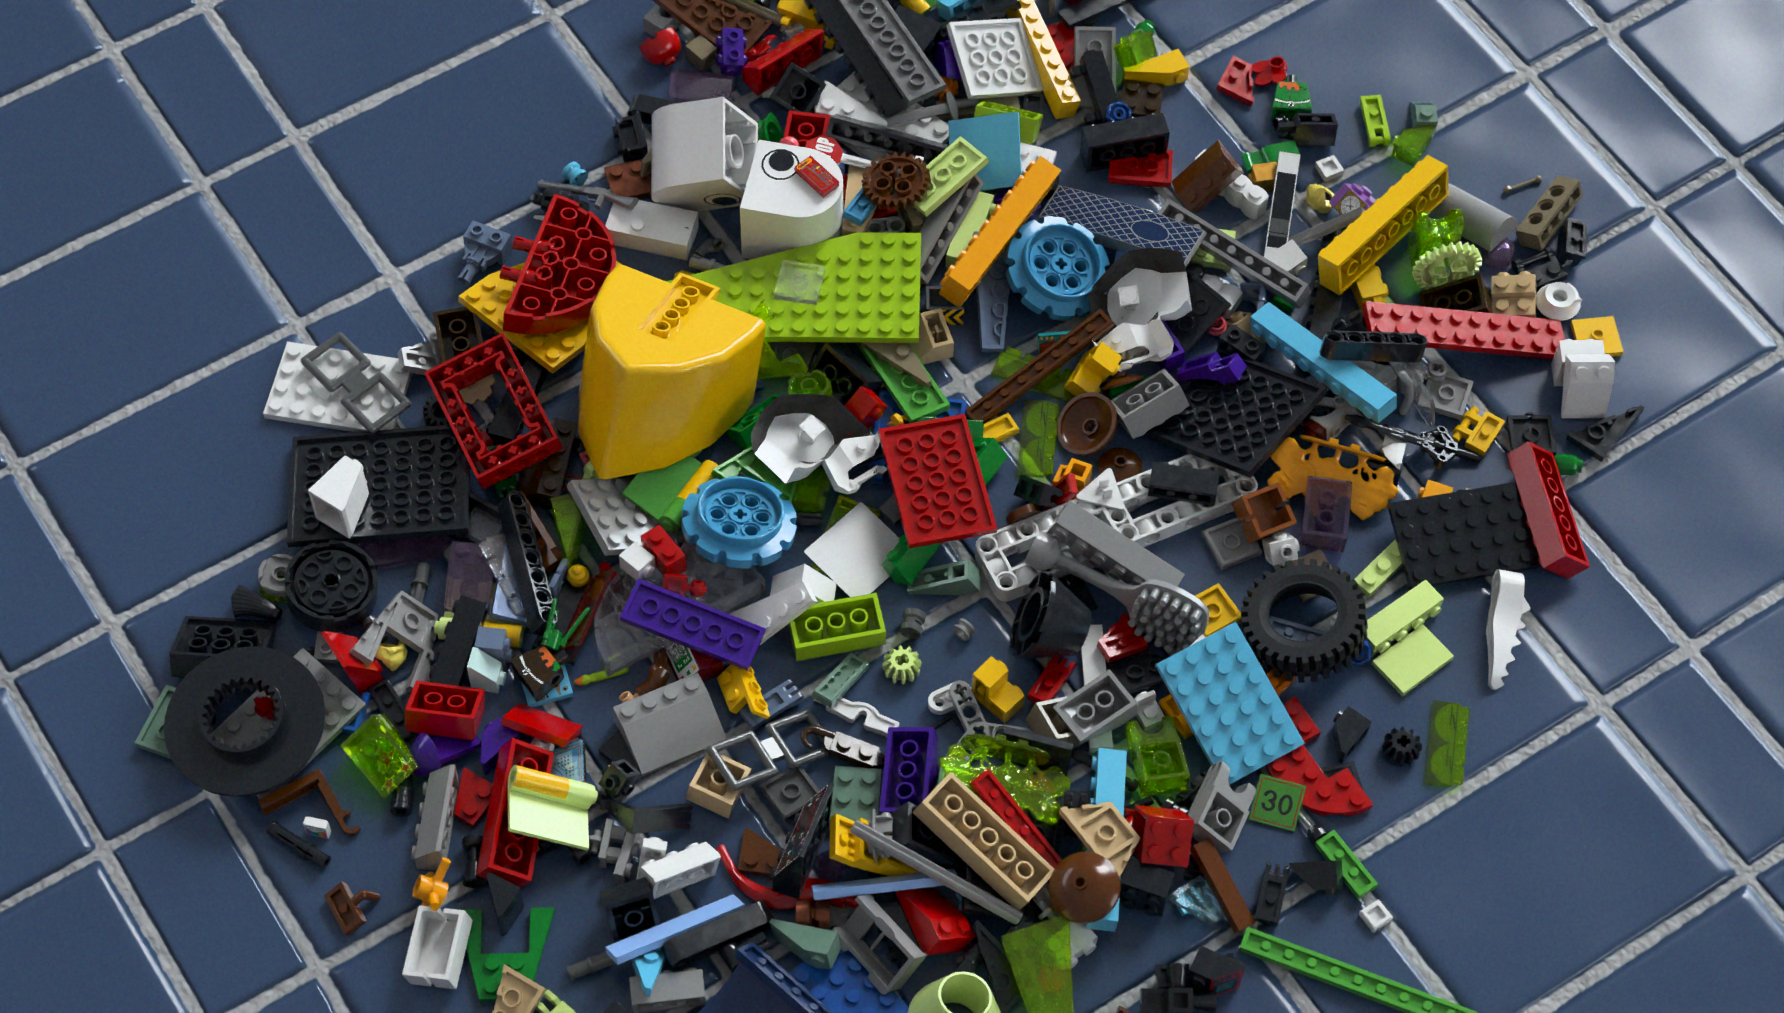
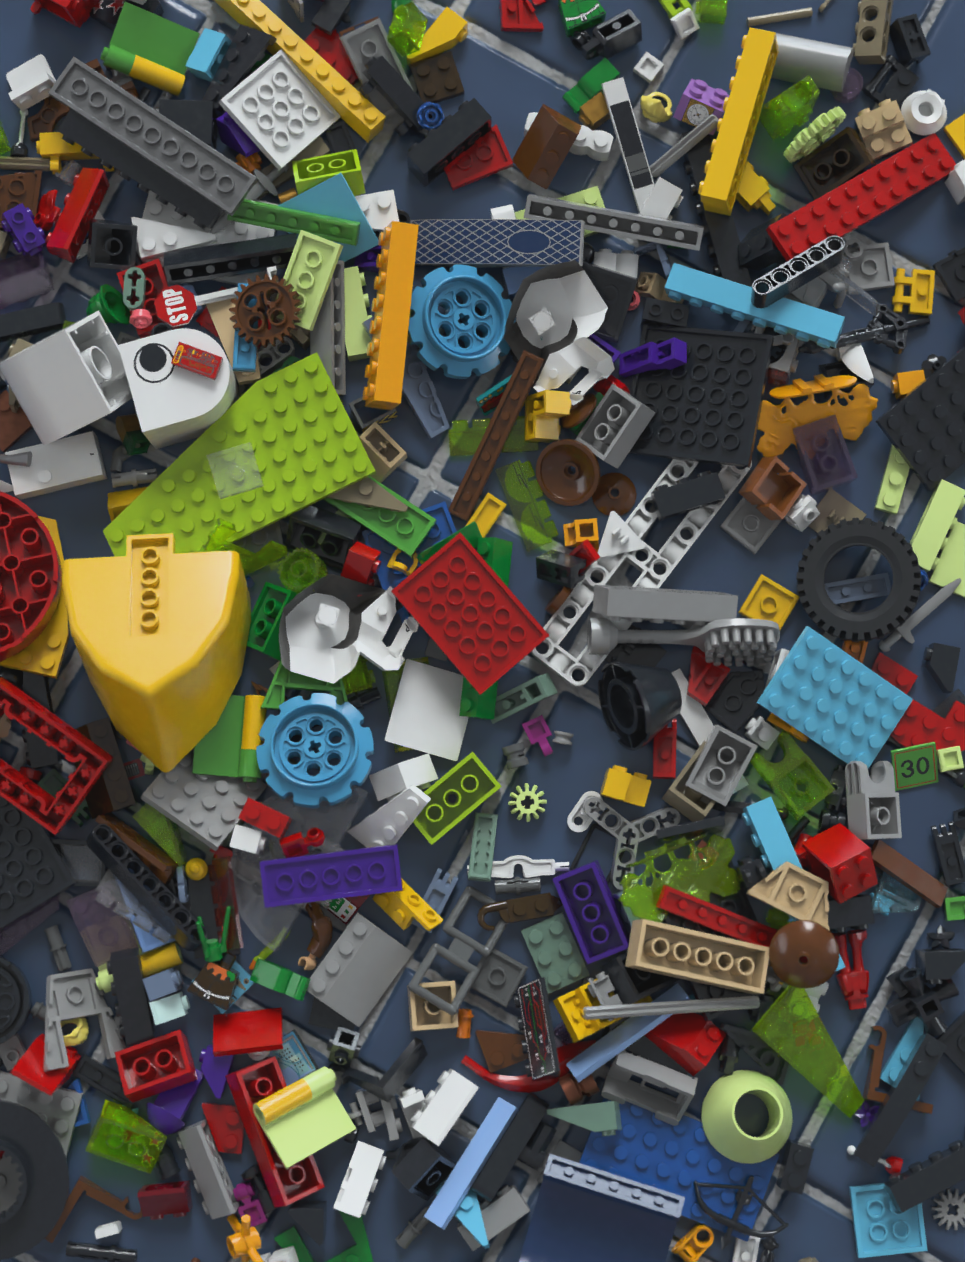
camera: 30 degrees left, 25 degrees up
(383, 823) = (165, 1199): none -> dark red slope
(455, 873) = (244, 1193): none -> magenta plate
(564, 893) = (359, 1179): none -> white wedge
(595, 693) = (280, 979): none -> green piece
(729, 229) = (131, 433): none -> leg
(738, 817) = (464, 1023): none -> orange pin
(793, 123) = (139, 289): none -> sand green beam
(853, 729) = (517, 885): none -> dark grey pin
(944, 615) = (537, 732): none -> magenta plate
(950, 131) = (296, 220): none -> bright green tile
(1123, 957) = (854, 981): none -> red piece
(1314, 811) = (950, 758): none -> yellowish green tile
(1327, 688) = (918, 616): none -> light grey sword
(1378, 148) = (684, 23): none -> white tile
(1472, 182) = (781, 16): none -> dark tan bar

